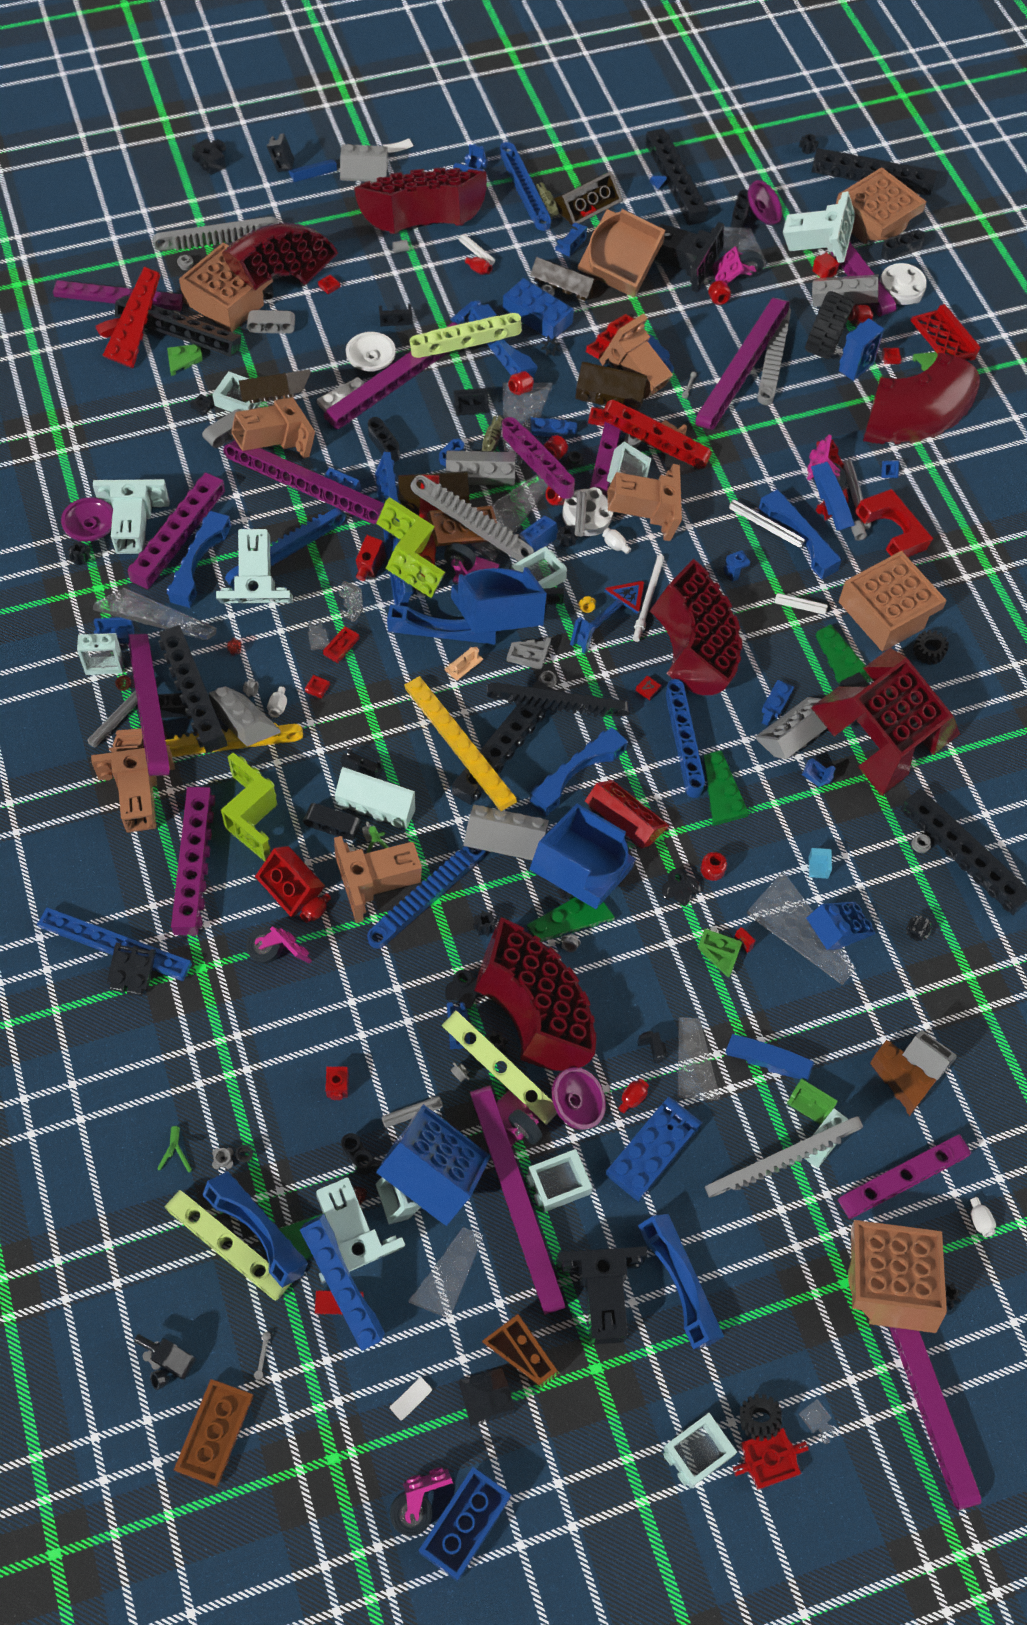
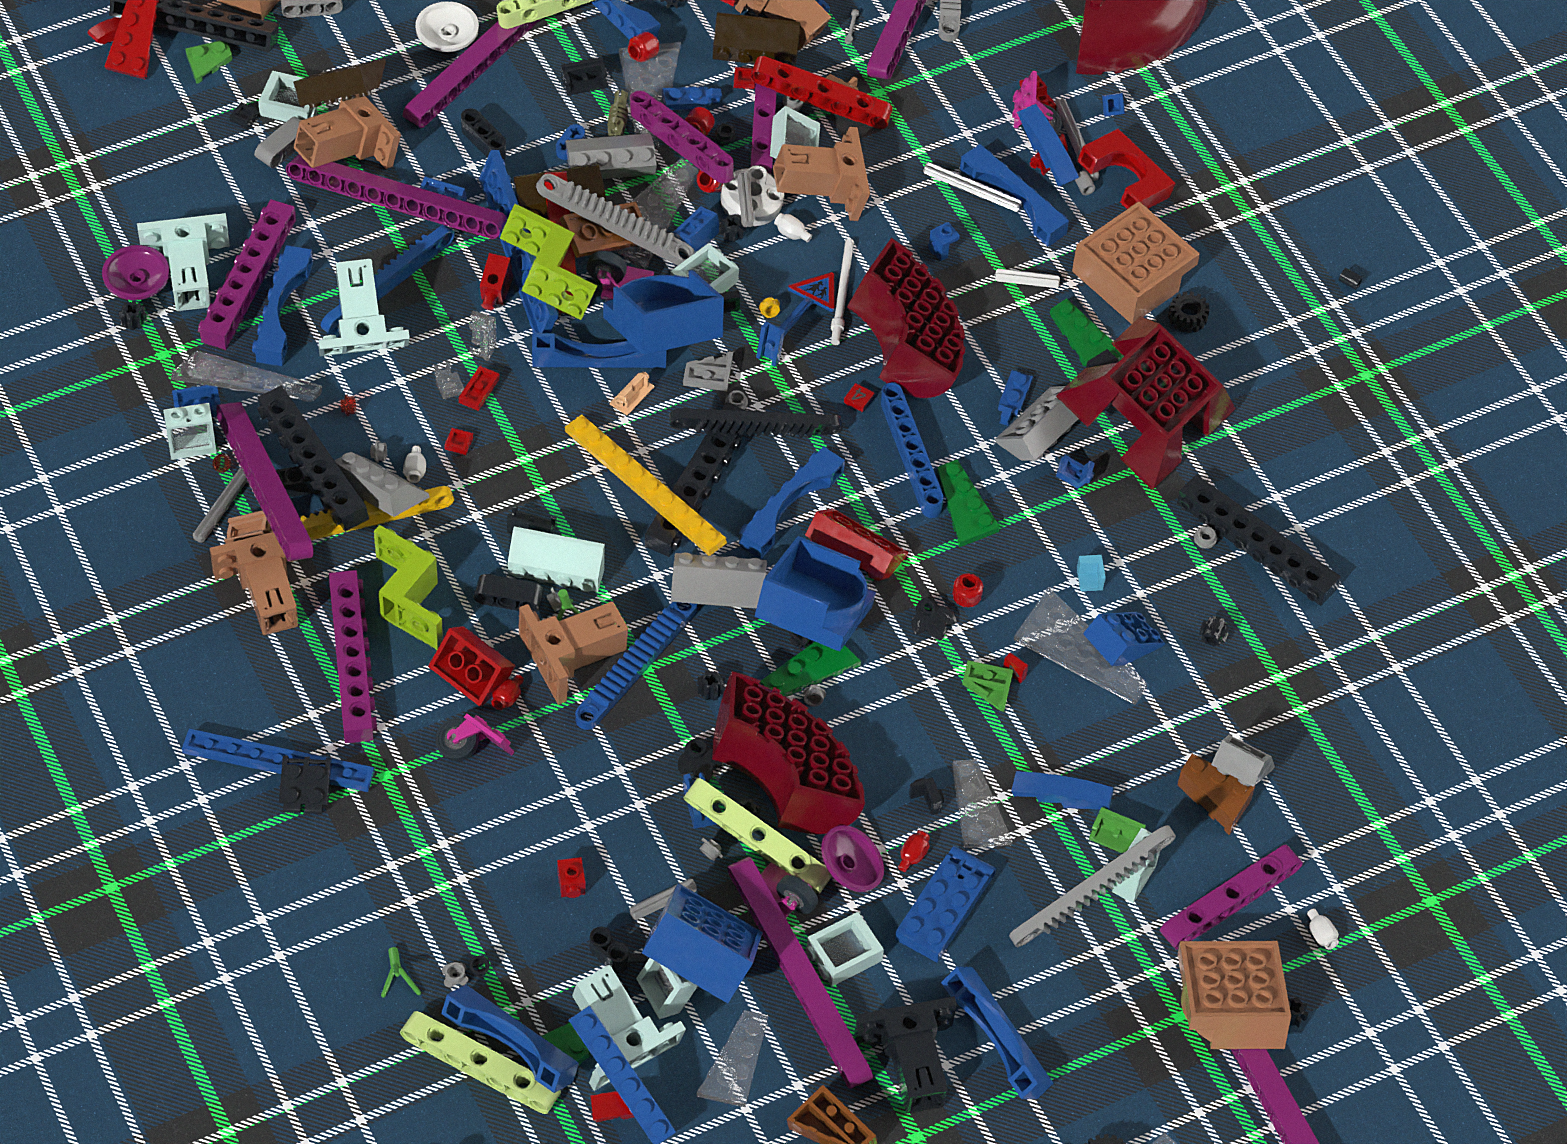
camera: 10 degrees left, 5 degrees down
(336, 395) = (411, 88): white plate -> none

